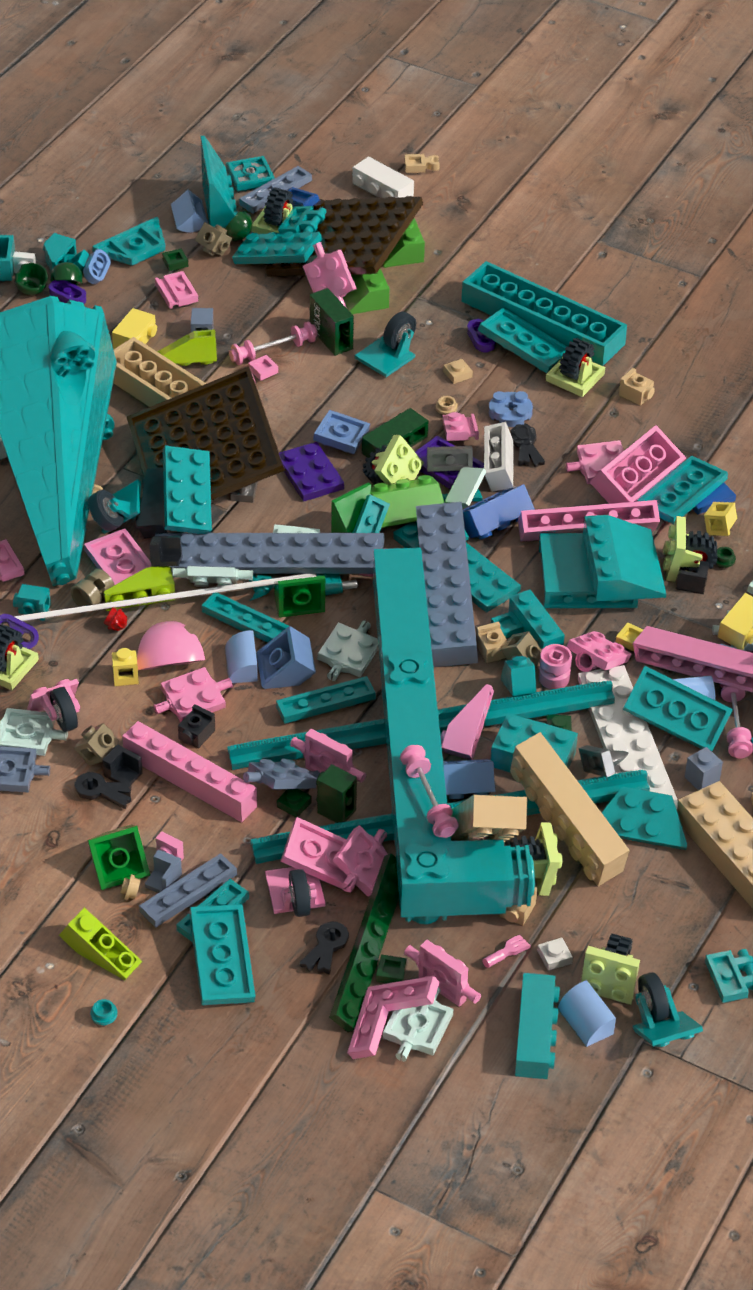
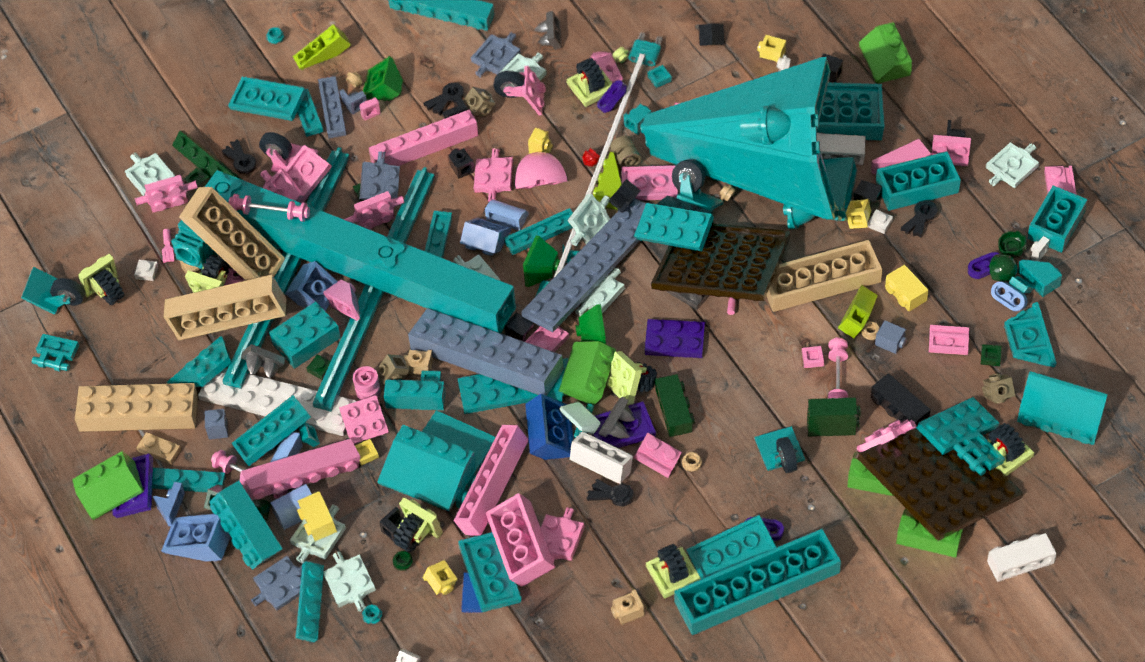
camera: 125 degrees right, 10 degrees up
(239, 226) = (1002, 413): dark green hair -> none
(249, 173) = (1091, 462): teal piece -> none
(256, 199) = (1055, 471): sand blue plate -> none
(275, 295) = (898, 400): none -> black brick
(303, 198) = (1028, 479): blue tile -> none
(336, 794) = (341, 200): dark green brick -> none
(341, 431) = (700, 372): medium blue plate -> none
(371, 515) = (575, 330): teal plate -> none
(379, 1002) = (169, 159): bright pink plate -> none
(419, 163) = (1038, 602): tan plate -> none
(457, 371) = (731, 493): tan plate -> none
(518, 401) = (662, 496): medium blue plate -> none
(519, 676) = (368, 351): teal slope -> none
(535, 1026) = (101, 229): teal brick -> none
(587, 1014) = (79, 260): light blue brick -> none

